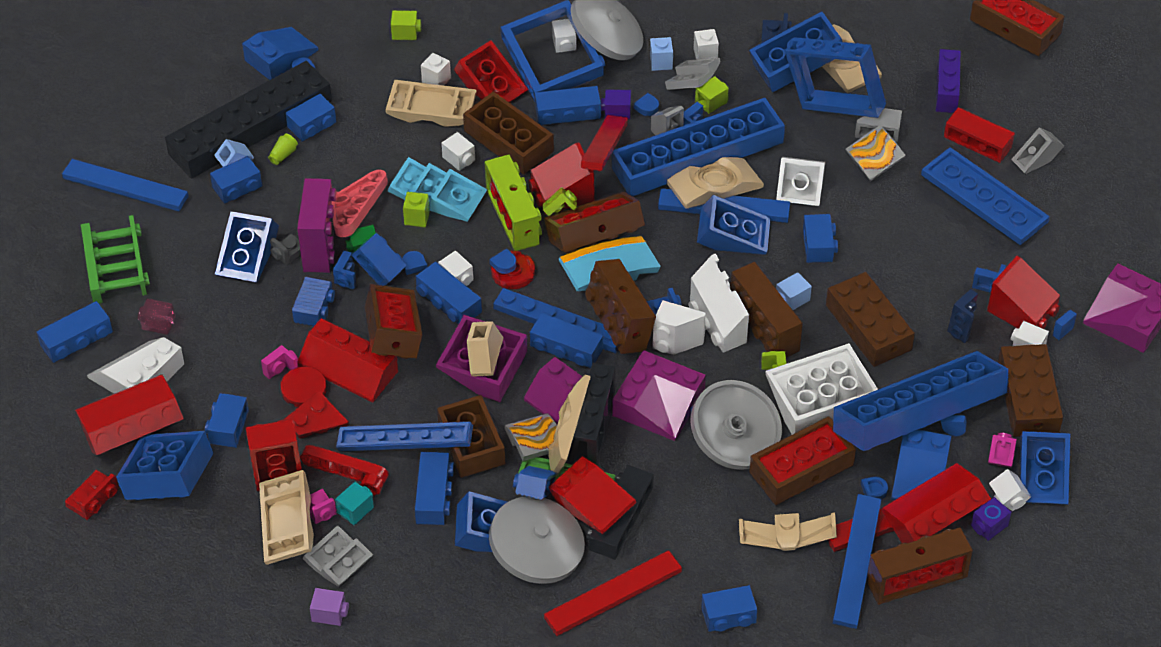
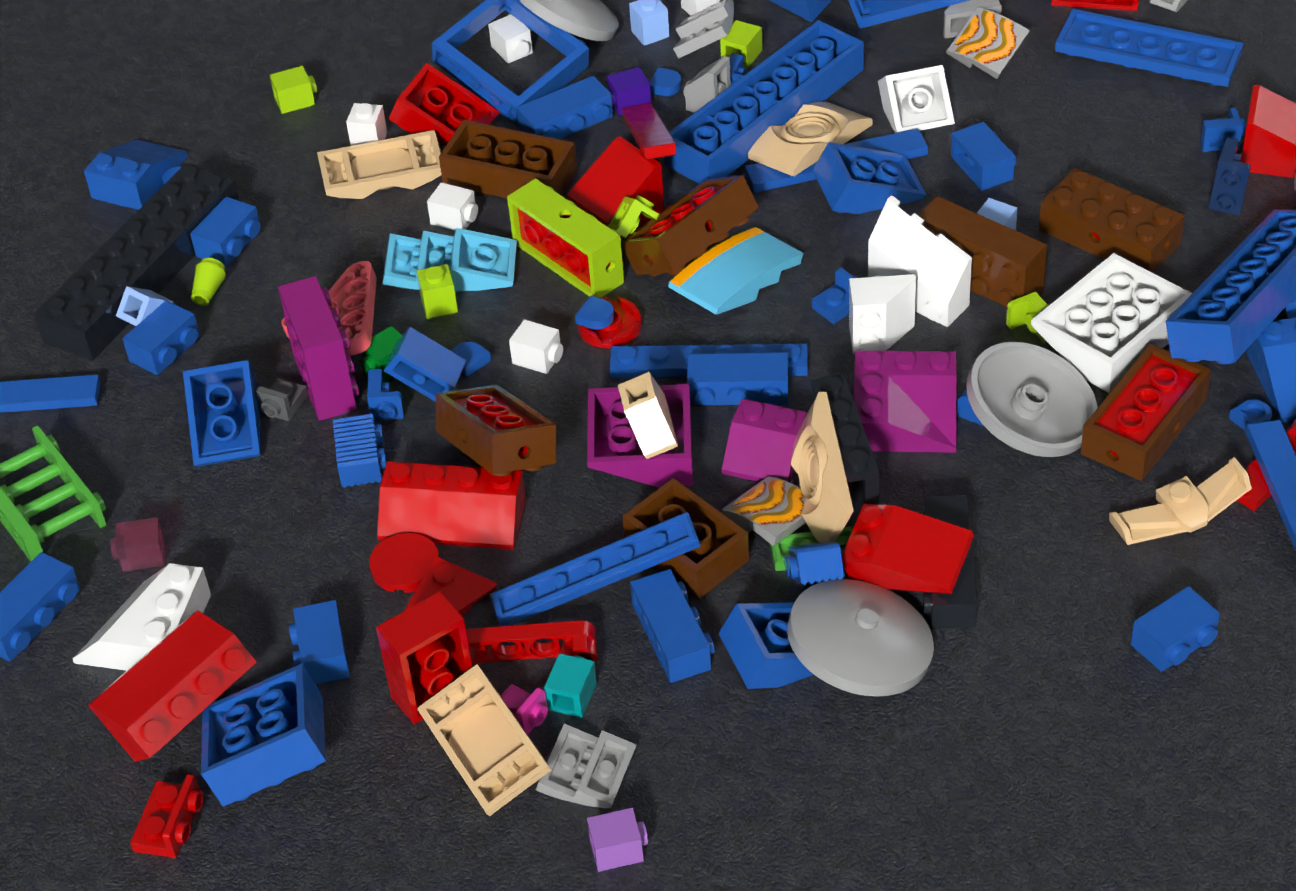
camera: 20 degrees left, 5 degrees down
(278, 360) = (351, 540): dark pink bracket -> none
(447, 293) = (543, 376): blue brick -> none
(612, 593) = (1001, 671): red tile -> none
(620, 306) = (792, 308): reddish brown brick -> none

